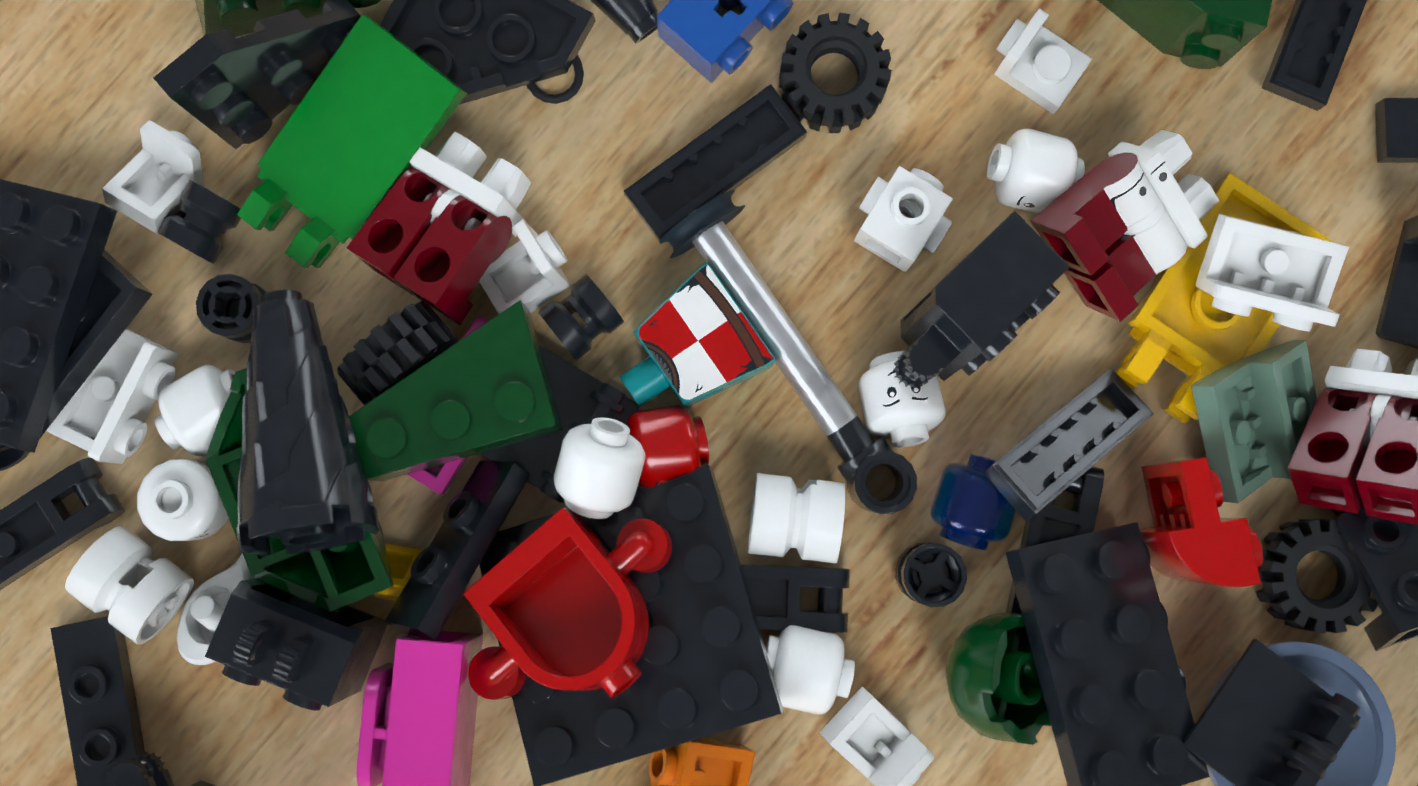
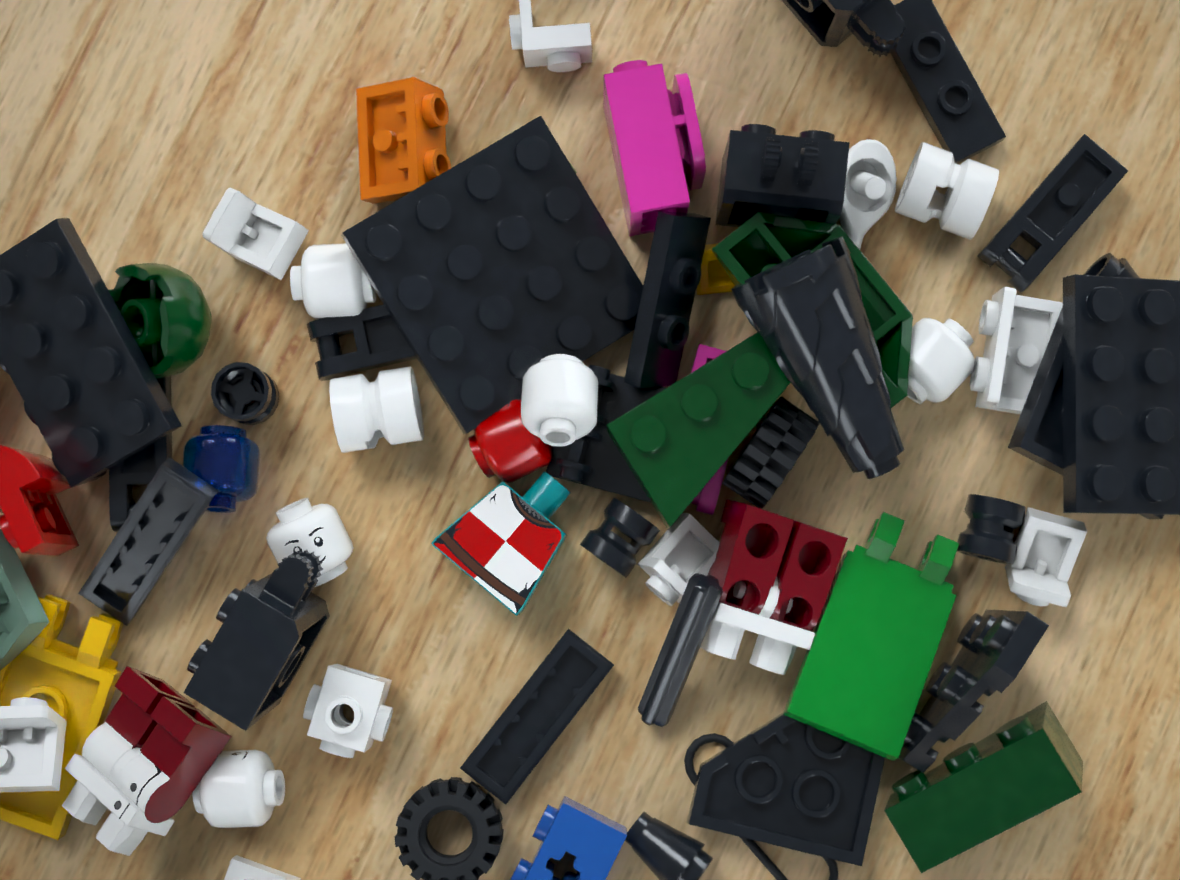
camera: 170 degrees right, 0 degrees up
(181, 501) = (924, 274): white head -> none
(224, 290) = (925, 466): black wheel -> none
(549, 183) = (680, 649): none -> black axle
(567, 609) = (552, 270): red piece -> none
(860, 452) = (416, 553): piece -> none

